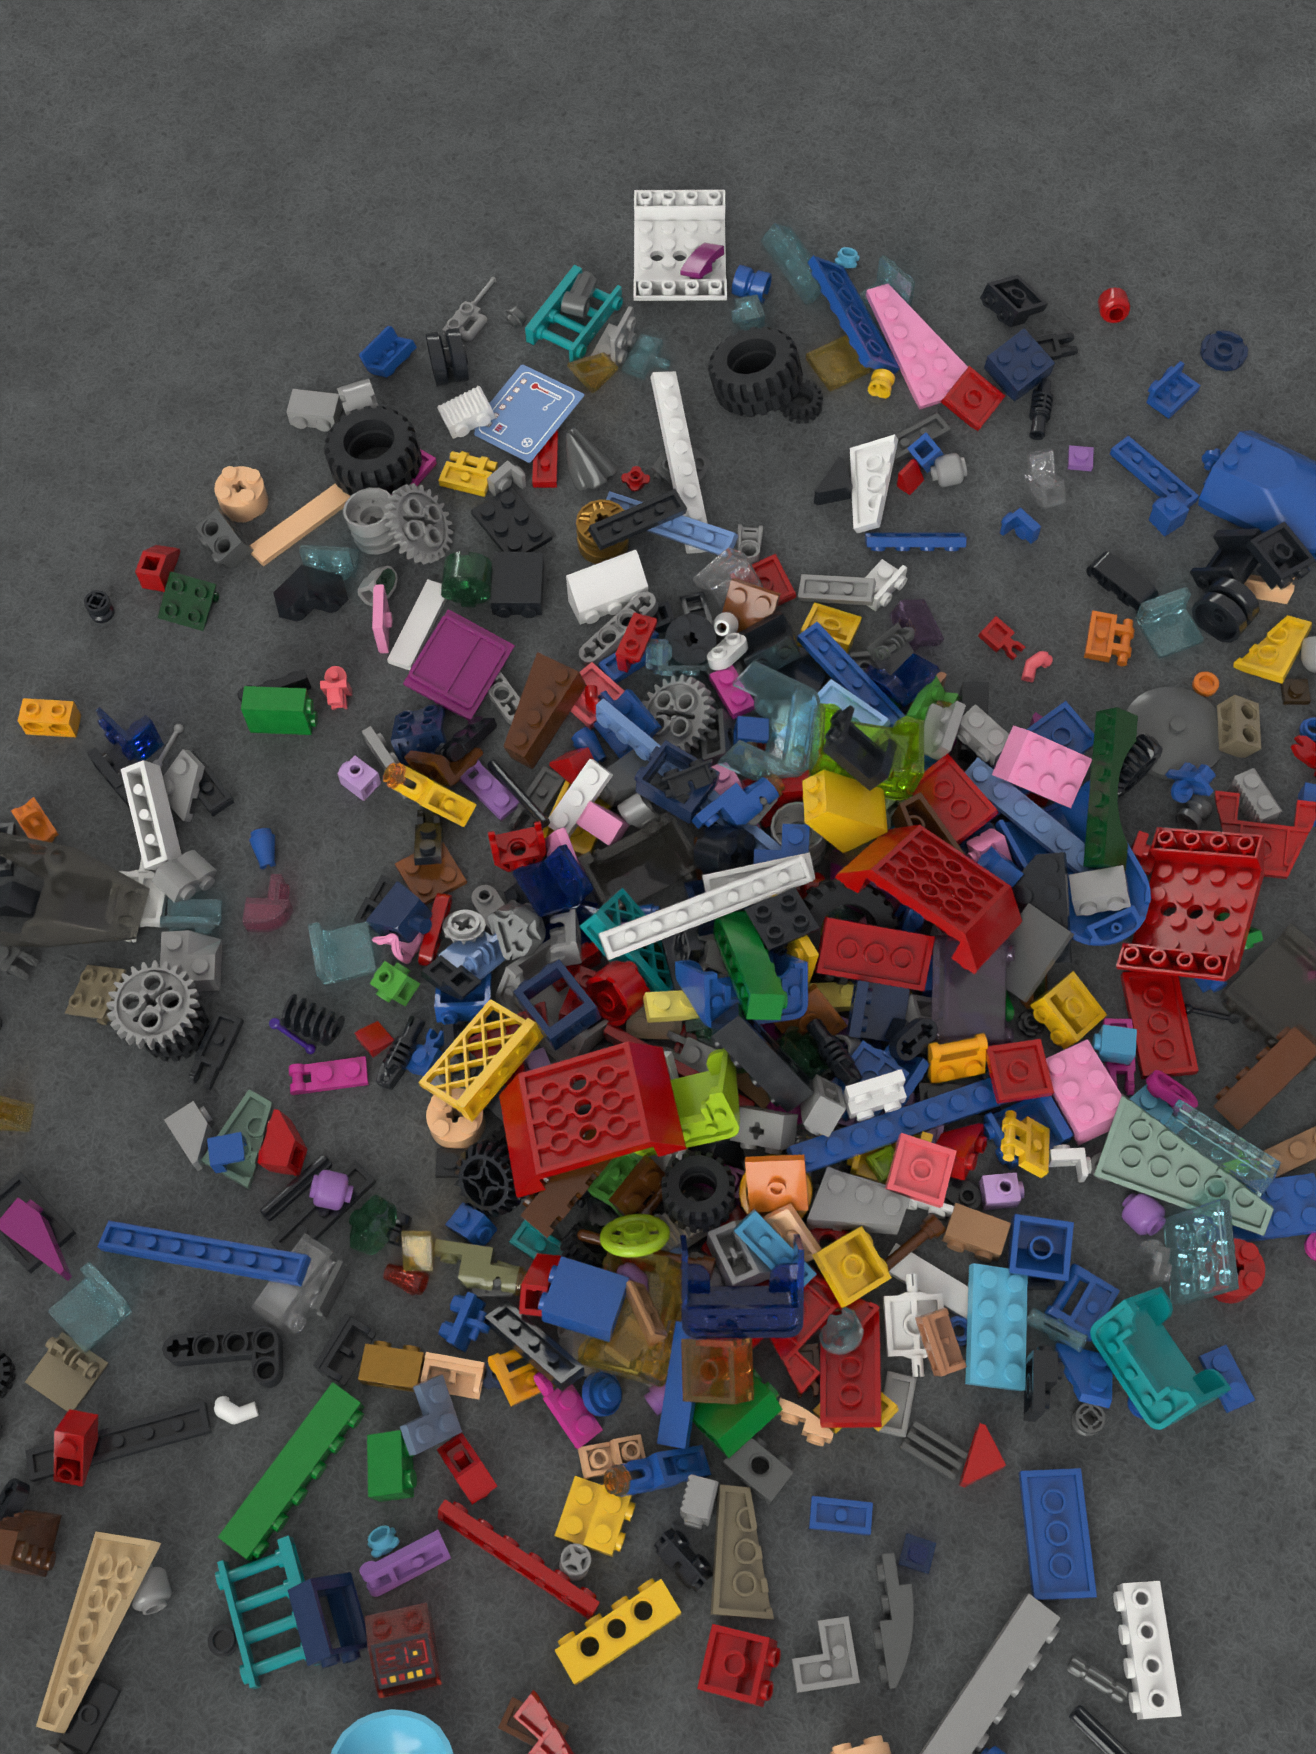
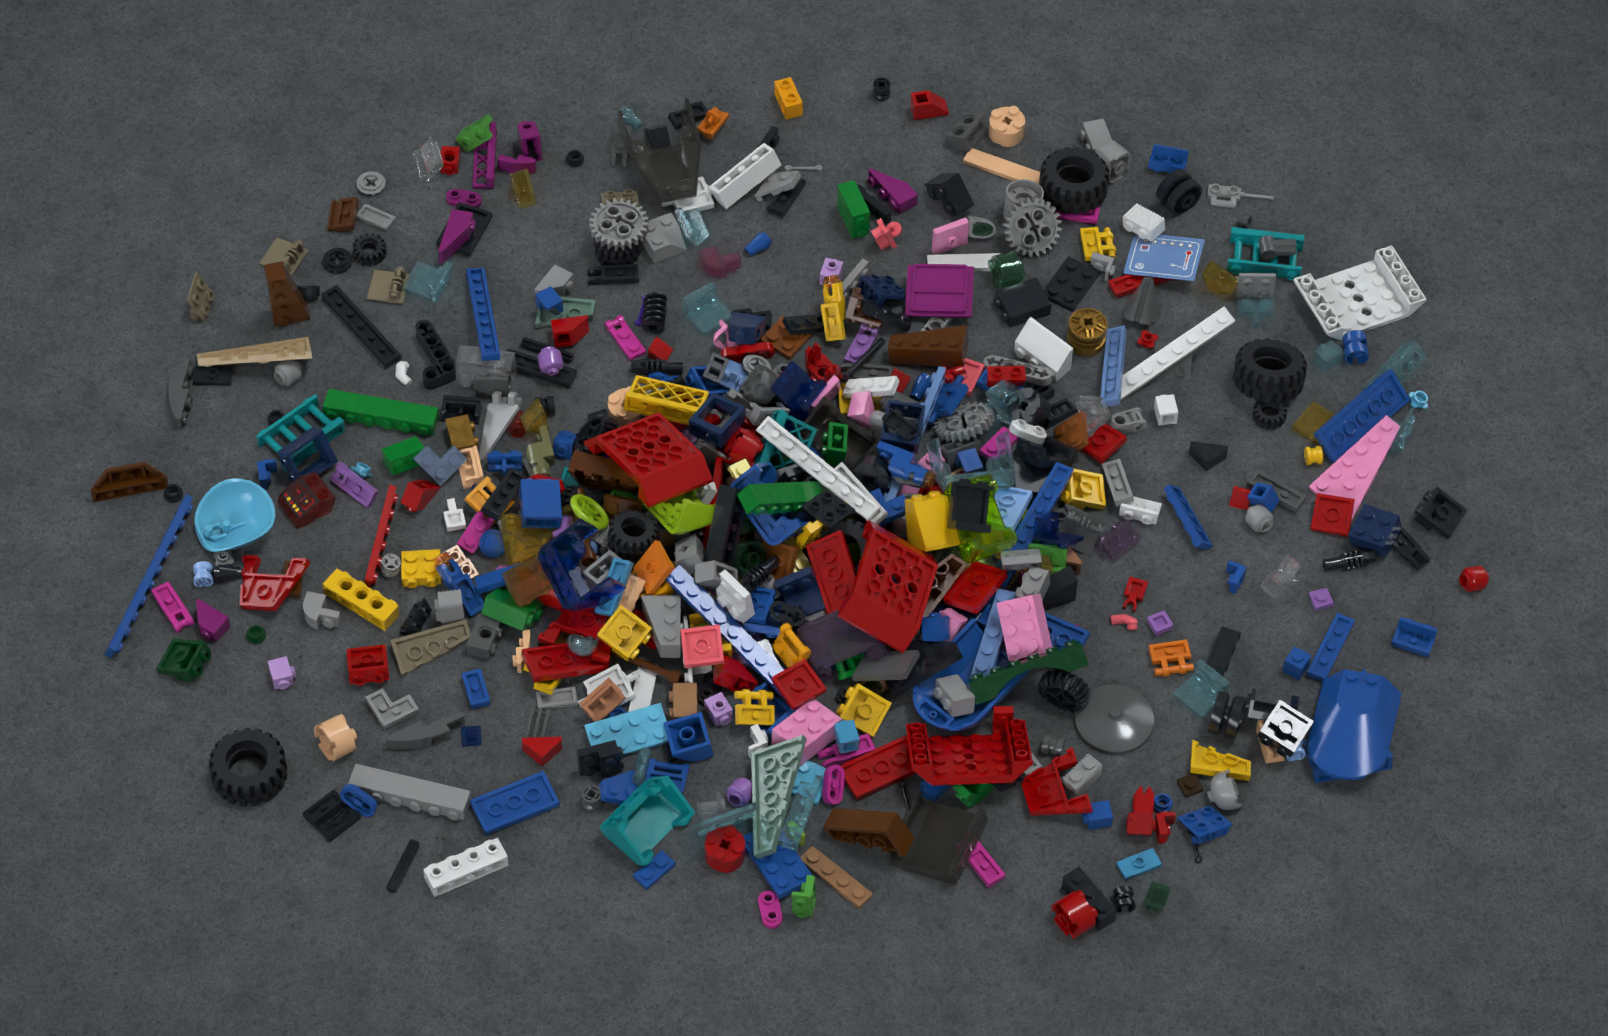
camera: 65 degrees right, 10 degrees down
(74, 1447) = (347, 302): red slope -> none
(137, 742) = (794, 145): clear blue bracket -> none
(184, 876) = (715, 209): light grey brick -> none
(187, 601) = (912, 133): dark green hinge -> none
(277, 647) = (900, 194): none -> magenta slope
(324, 1701) = (264, 469): none -> blue bracket
(331, 559) = (984, 194): clear light blue bracket -> none
(371, 1225) = (541, 390): clear green plate -> none
(389, 1305) = (497, 420): none -> light grey flag
(394, 983) = (699, 344): bright green brick -> none
(530, 1433) = (454, 517): none -> white plate
(613, 1716) = (316, 612): none -> light grey brick
(637, 519) = (1097, 340): black plate -> none
(645, 1312) = (544, 532): medium nougat slope -> none
(650, 876) = (835, 444): none -> green brick
(701, 260) = (1348, 306): magenta slope -> none
(729, 620) = (1049, 424): white cone -> none
(752, 498) = (1166, 409): none -> white brick
(870, 480) = (1221, 474): white wing -> none
(1054, 629) = (1160, 623): none -> medium lavender plate
(1190, 781) = (1070, 730): blue hips -> none
(1205, 684) = (1166, 728): orange tile -> none
(1228, 356) = (1477, 670): dark blue tile -> none
(1239, 726) = (1135, 749): dark tan brick -> none

